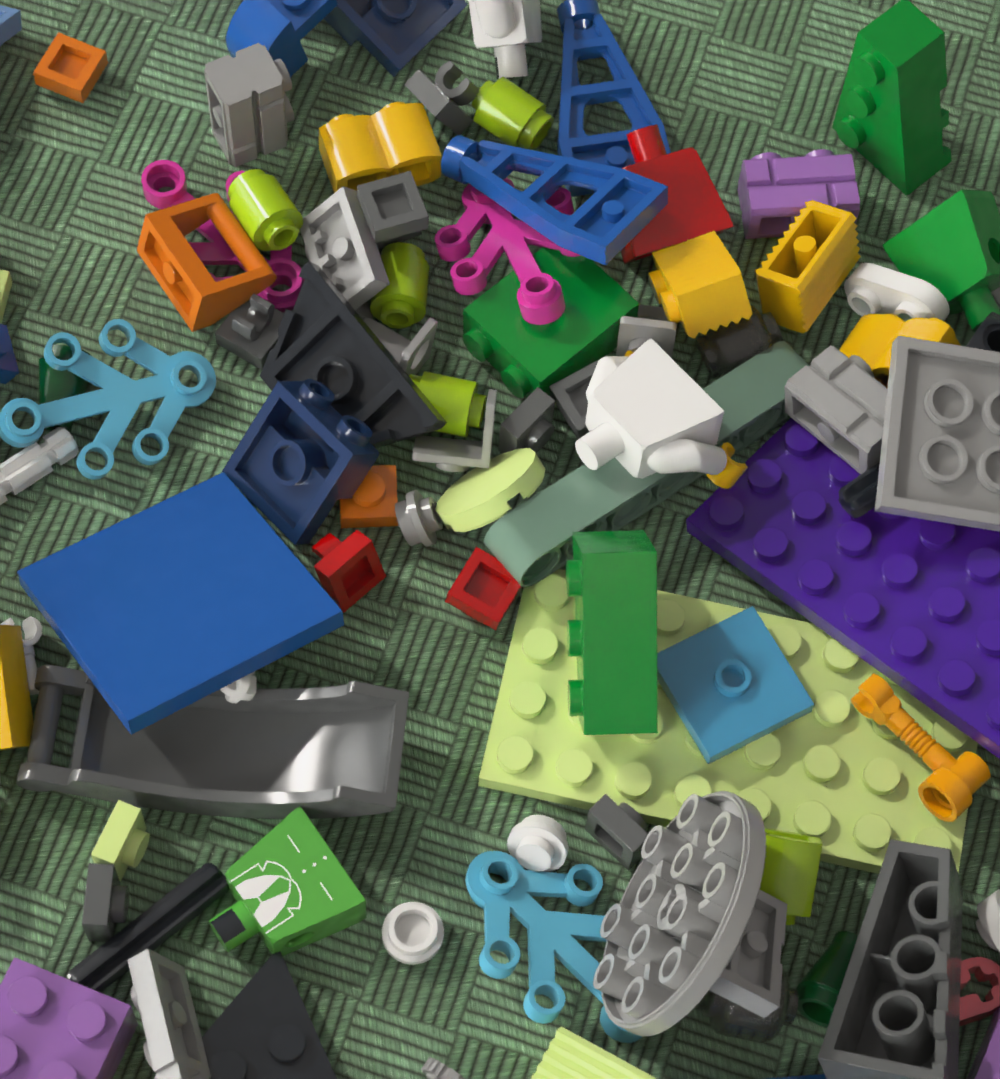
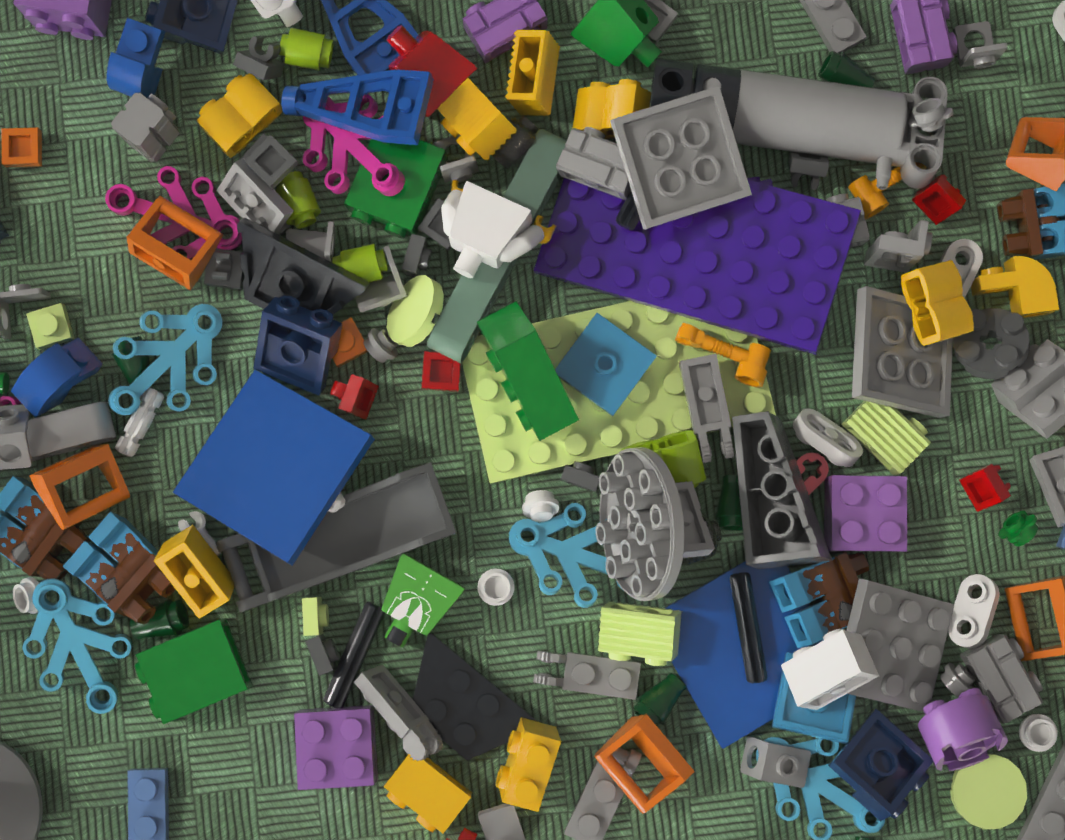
camera: 20 degrees left, 20 degrees up
(264, 210) = (193, 193): lime brick -> none
(859, 805) = (706, 403): none -> light grey hinge
(884, 291) = (599, 68): white plate -> none

